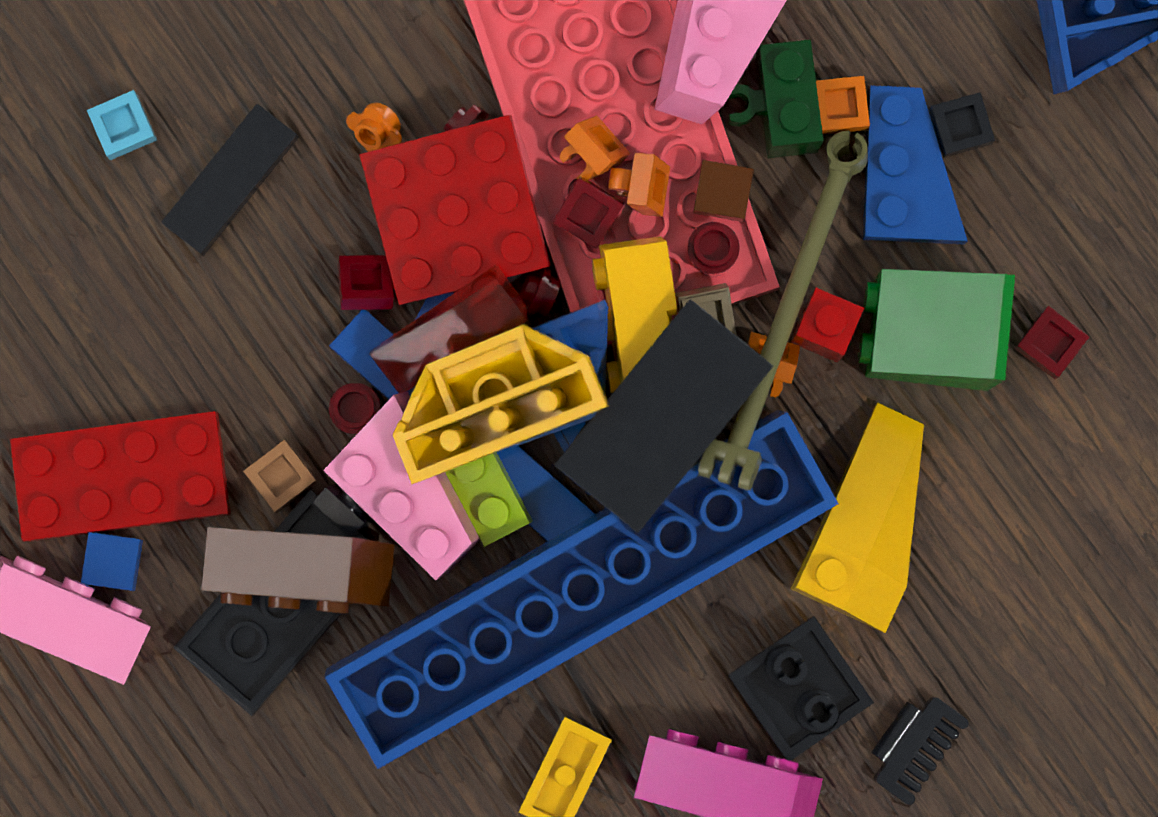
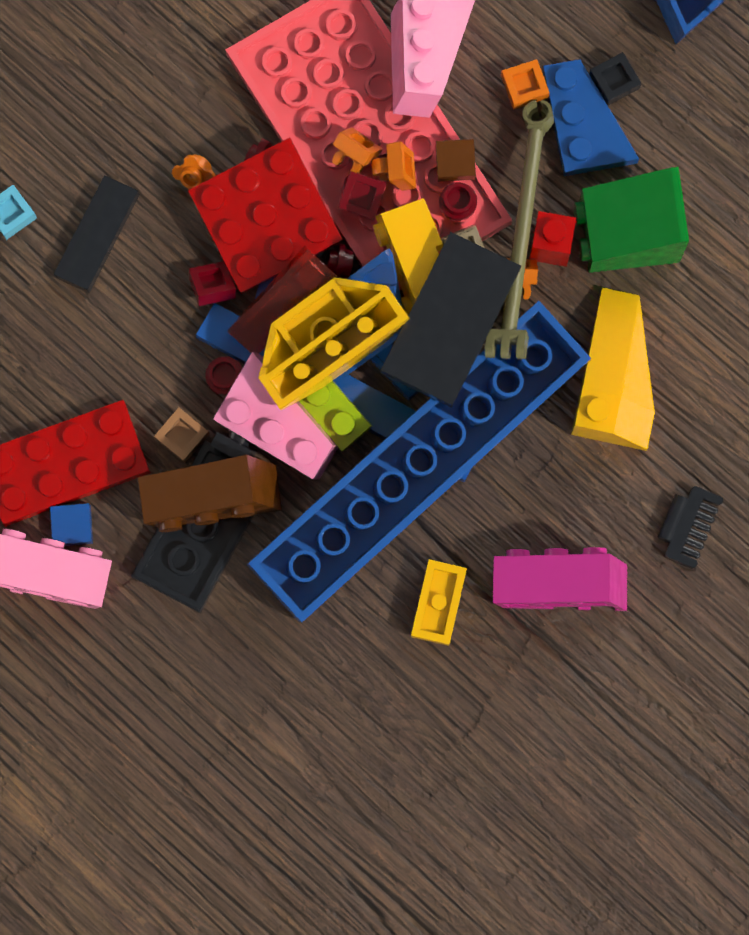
camera: 10 degrees left, 5 degrees down
(784, 99) = (484, 88): dark green brick -> none
(800, 689) = (595, 501): black plate -> none
(1051, 342) = (716, 216): dark red plate -> none

